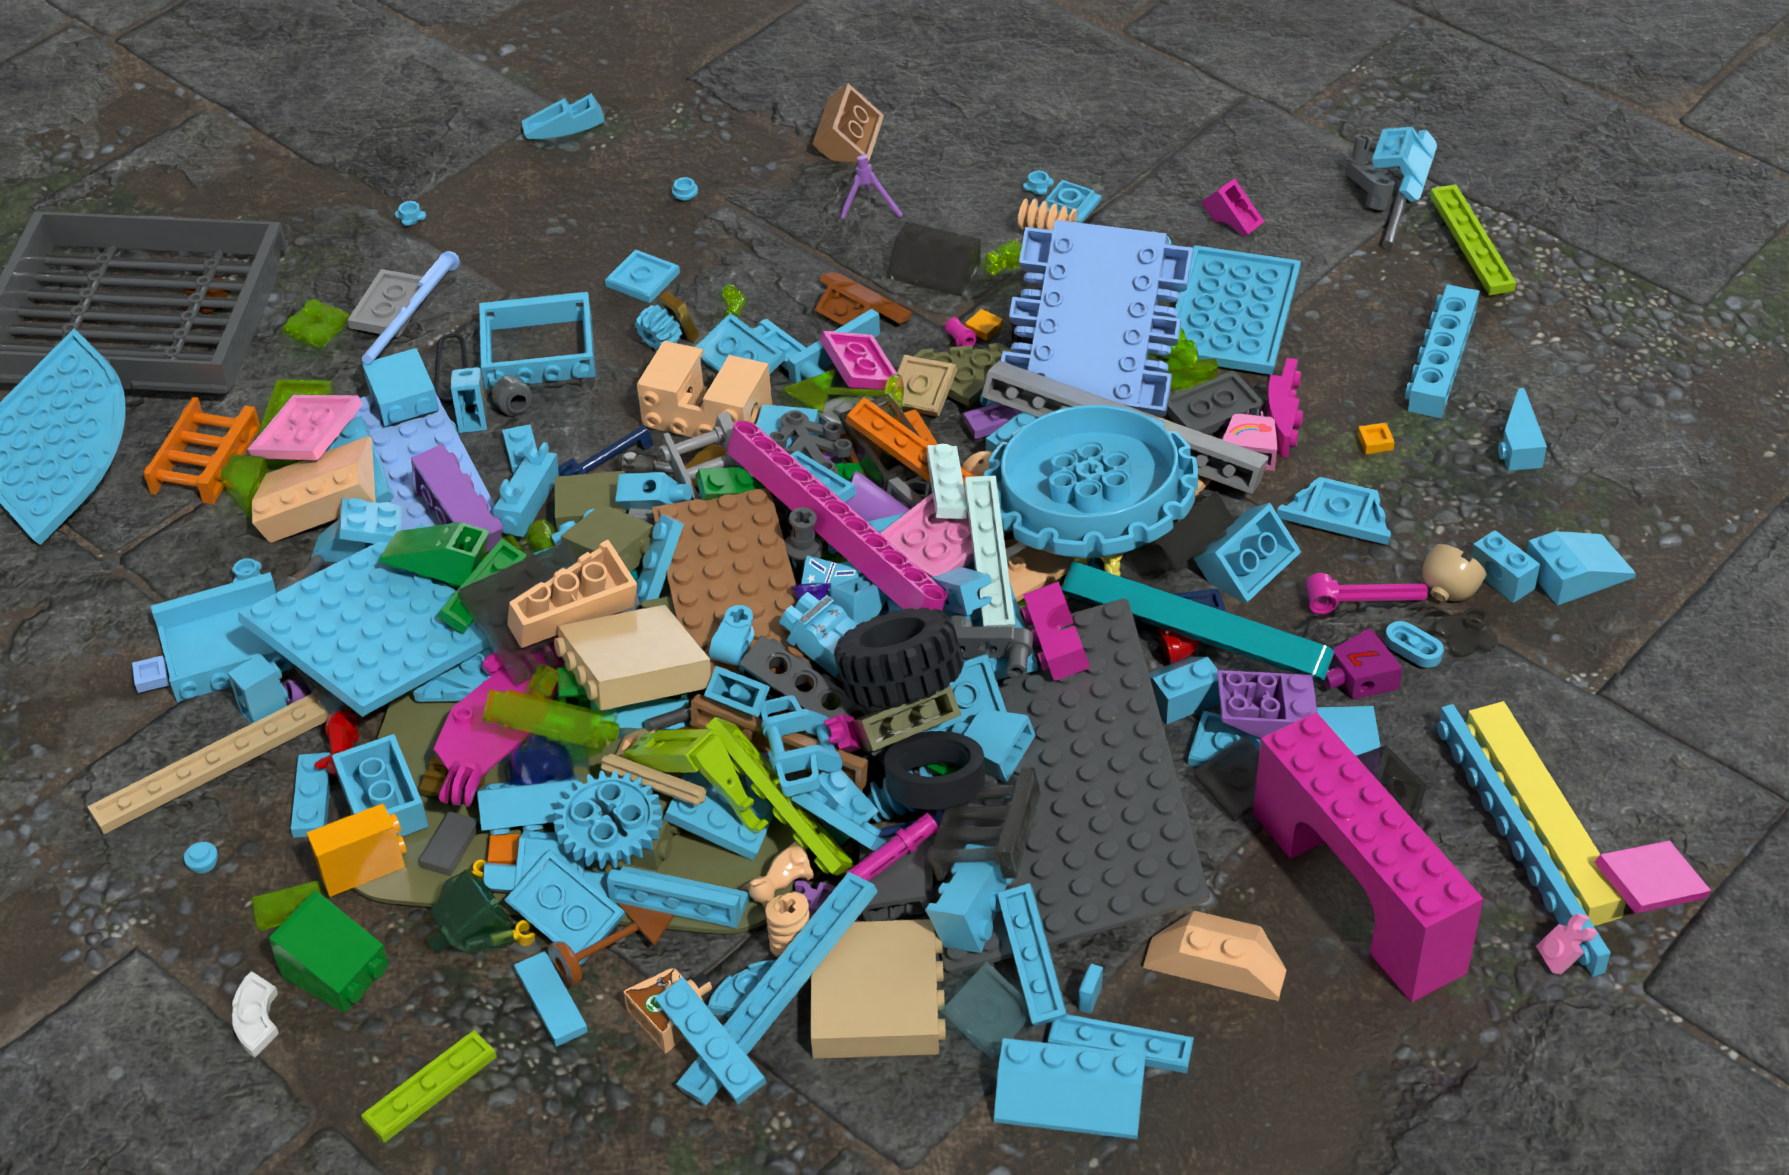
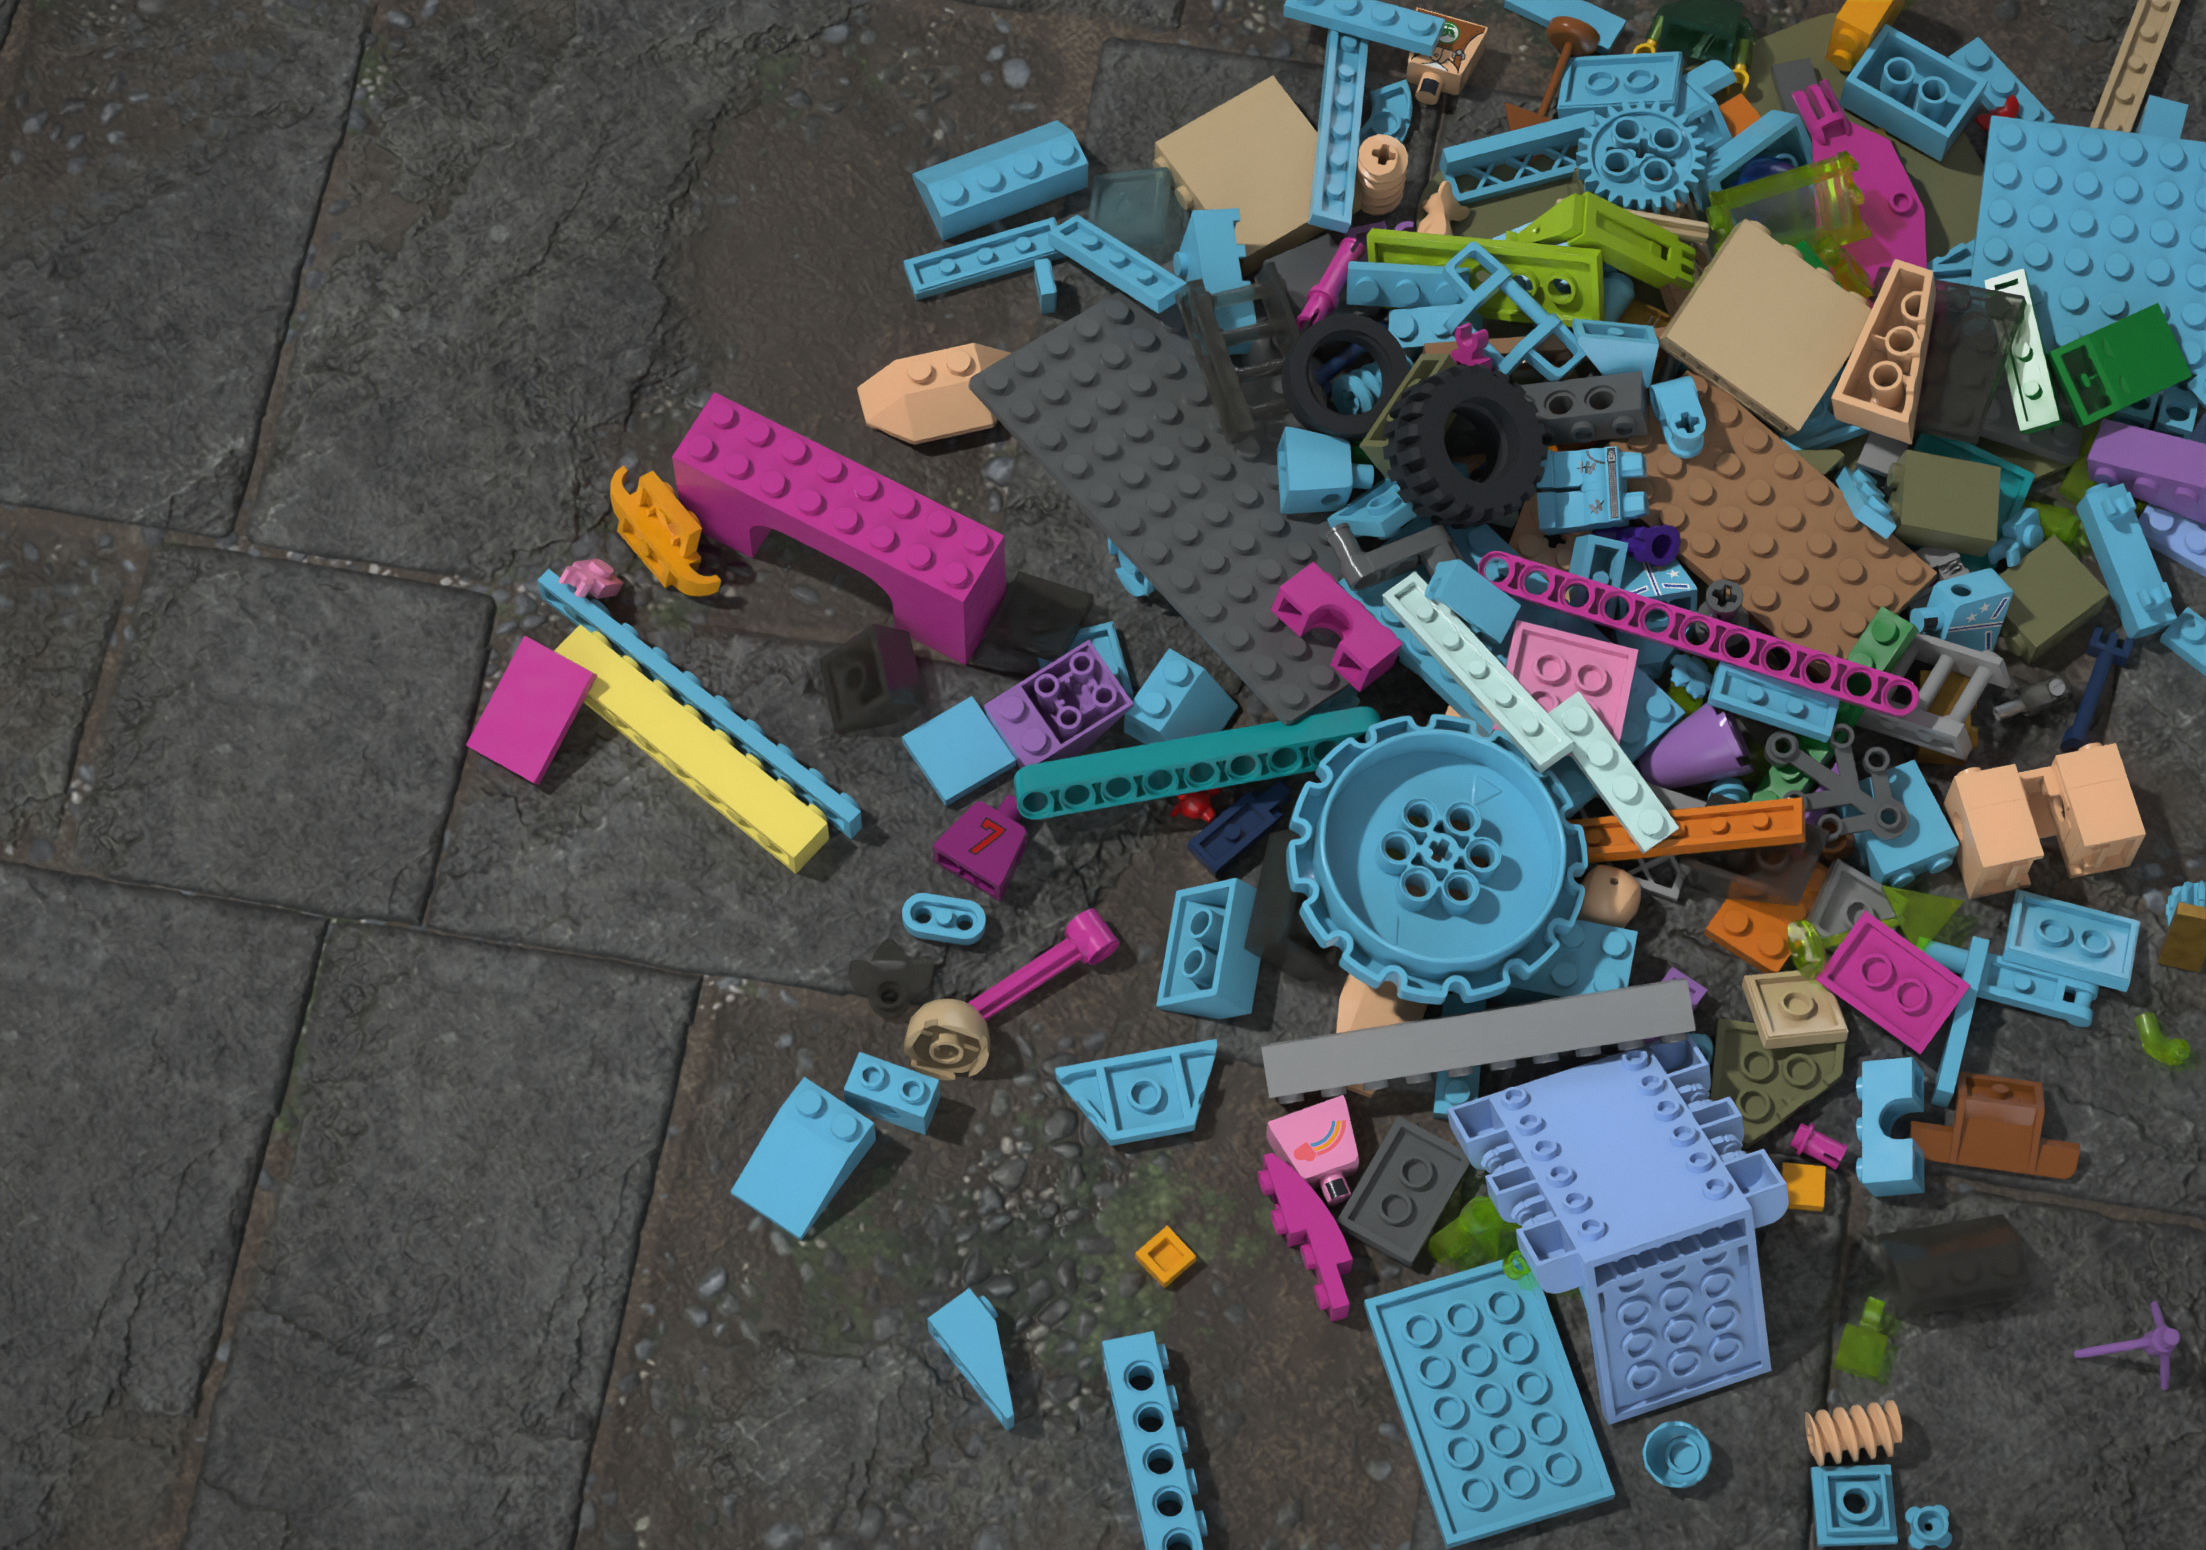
camera: 145 degrees right, 20 degrees up
(903, 330) = (1888, 1092): none -> medium azure arch
(1498, 954) = (661, 533): none -> light orange plate

